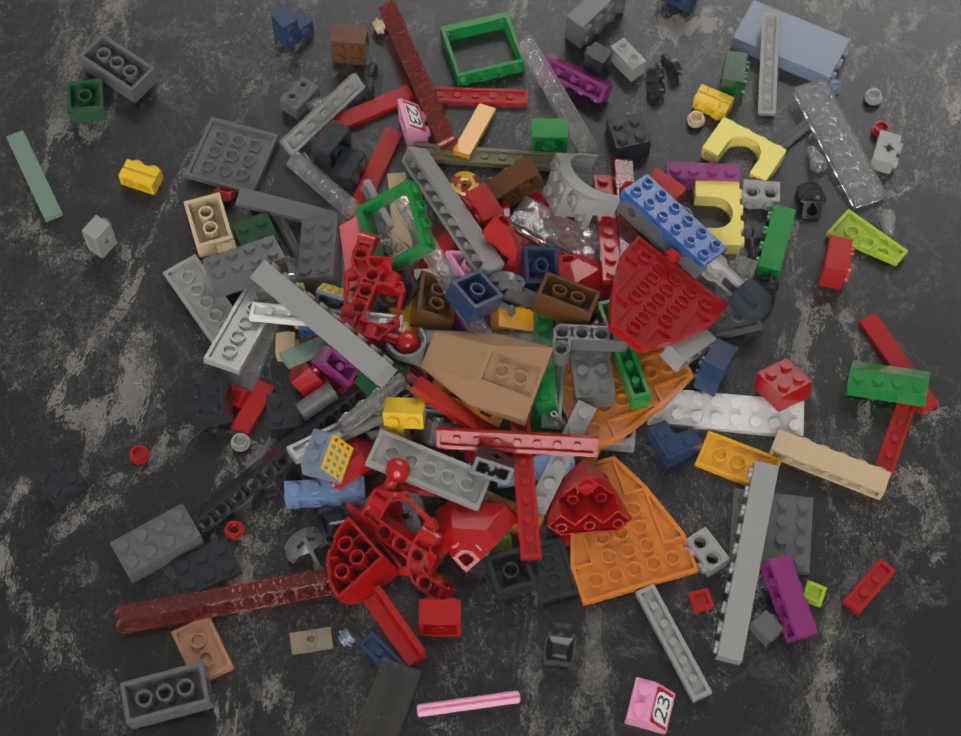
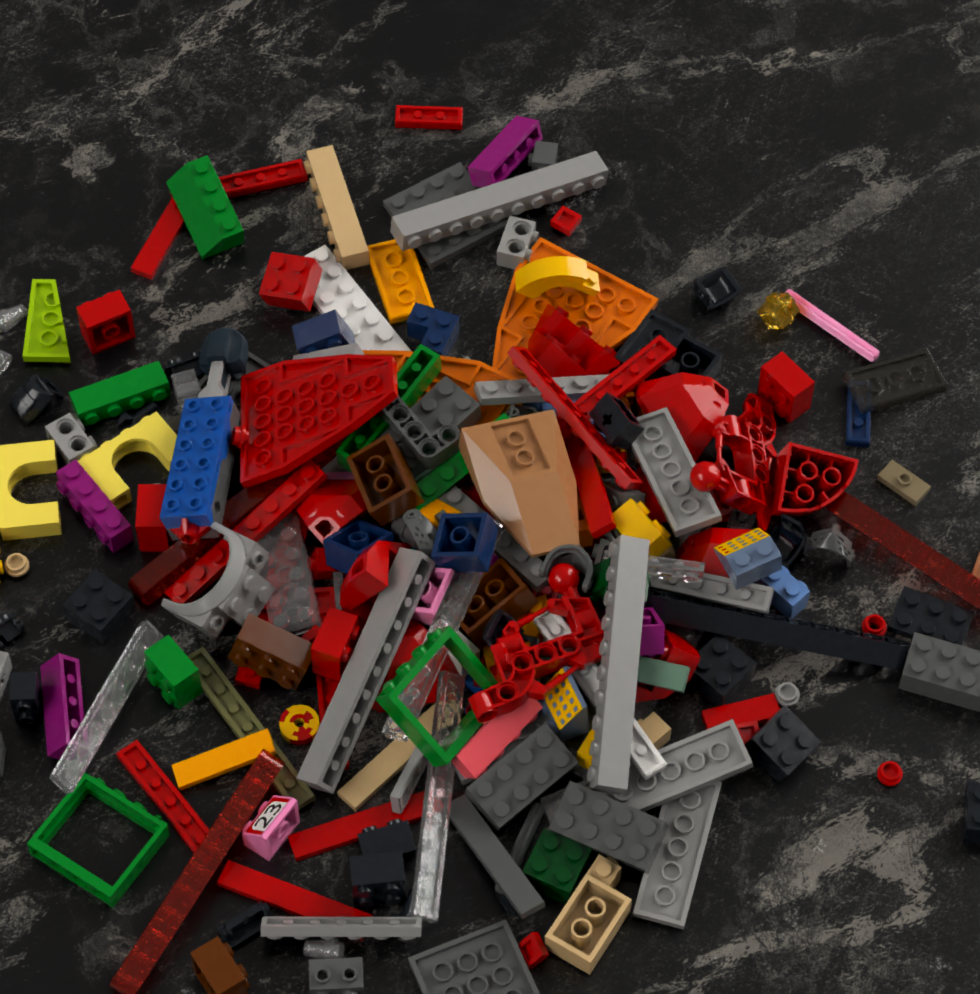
camera: 130 degrees left, 5 degrees down
(317, 401) = (693, 628): flat silver pin -> none
(346, 637) = (873, 455): sand blue plate -> none
(379, 26) = (158, 977): tan plate -> none
(394, 627) = (828, 416): red fence -> none
(506, 672) = (778, 310): none -> clear yellow brick
(645, 541) = (556, 272): none -> yellow arch
(650, 706) = (699, 199): bright pink slope -> none
(673, 643) = (625, 215): light grey plate -> none
(814, 593) = (472, 149): lime tile -> none

